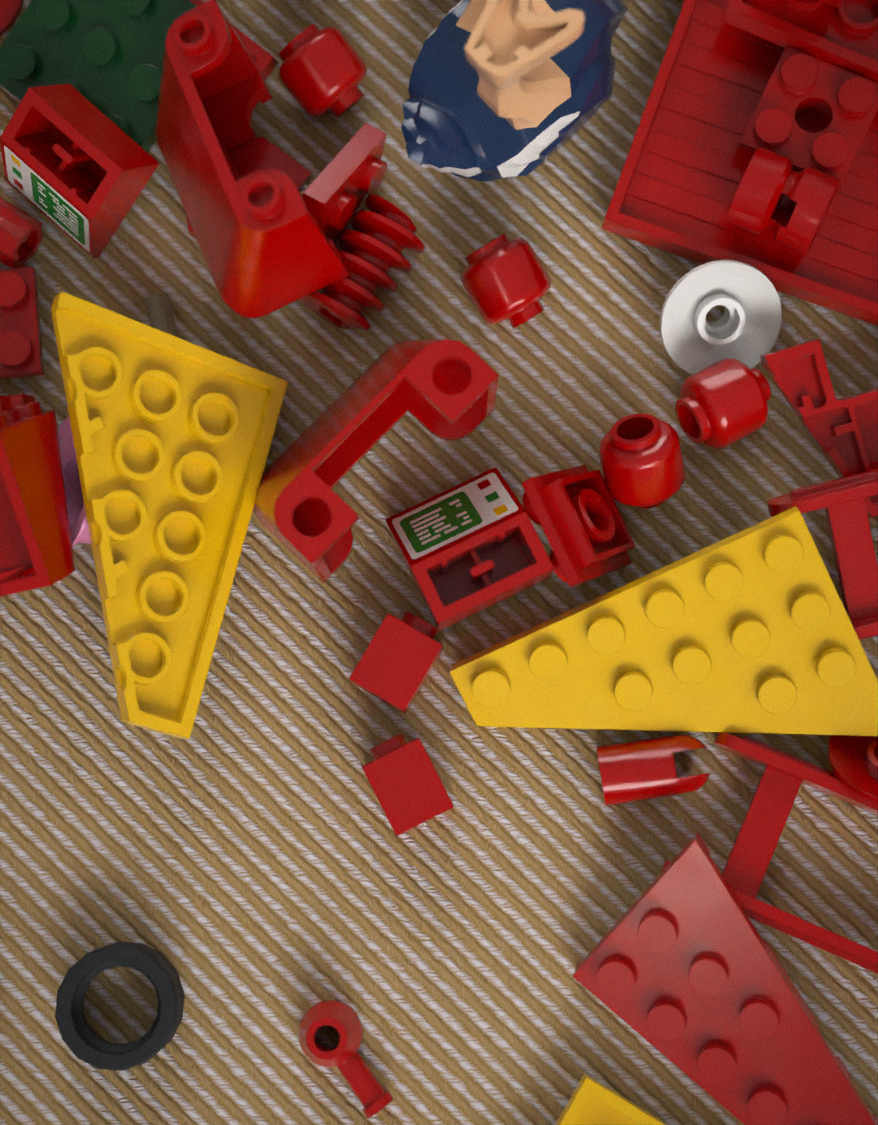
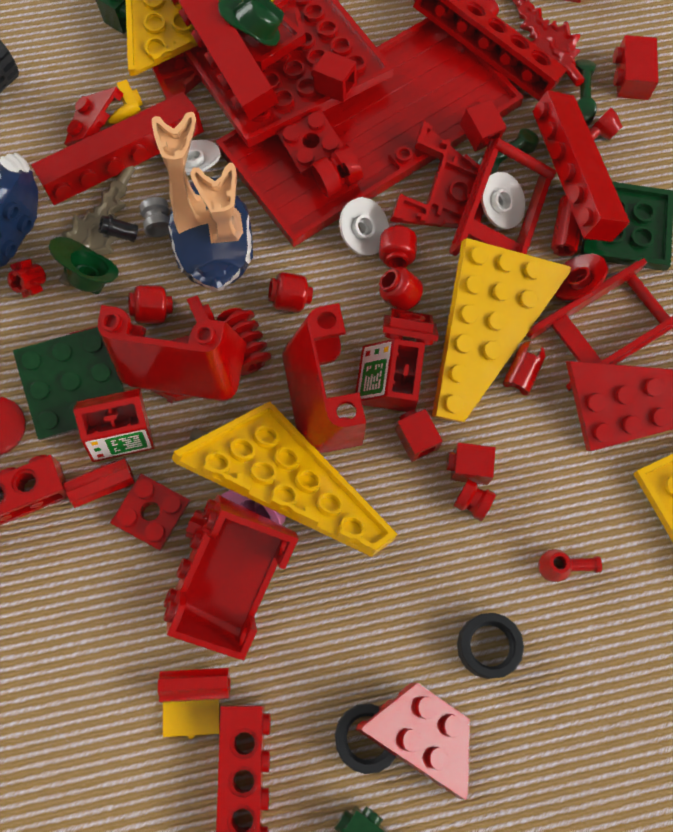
camera: 60 degrees left, 10 degrees down
(346, 833) = (475, 500): none -> red wheel

